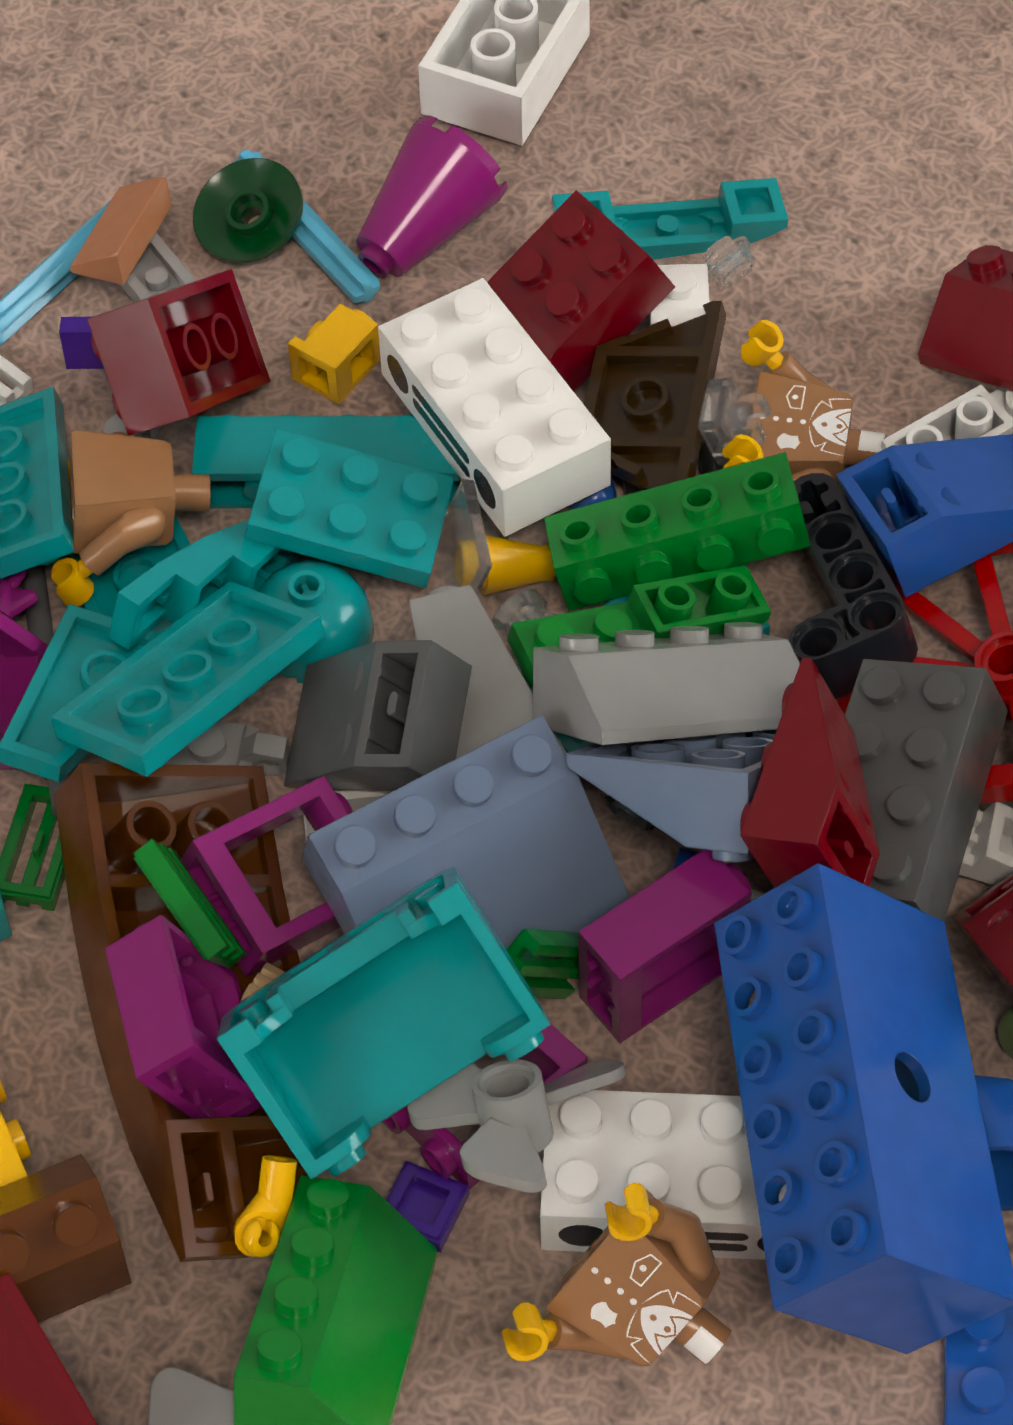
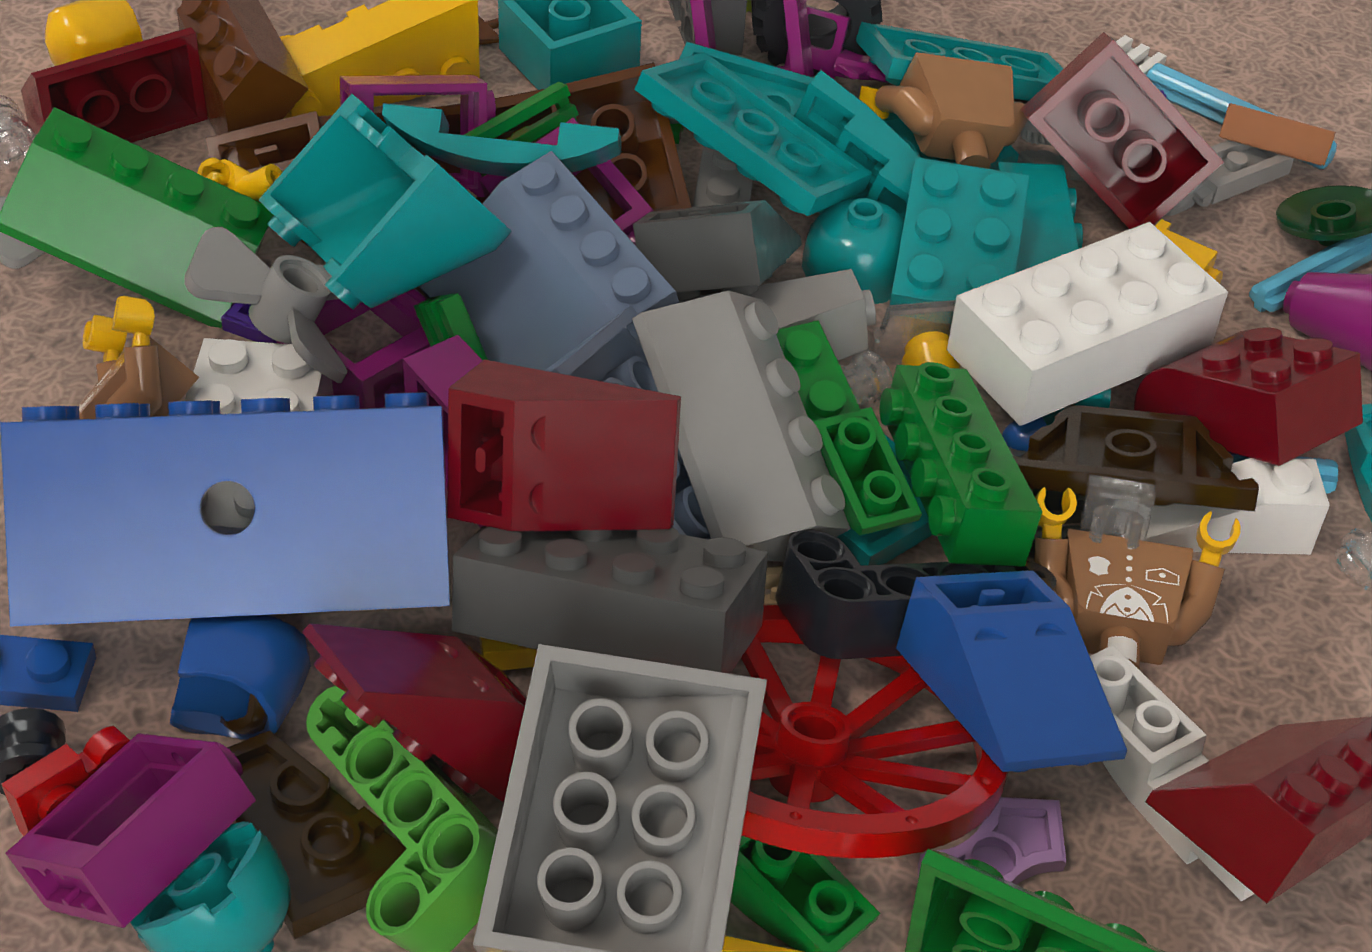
camera: 85 degrees right, 10 degrees down
(275, 834) = (428, 130): none -> teal slope

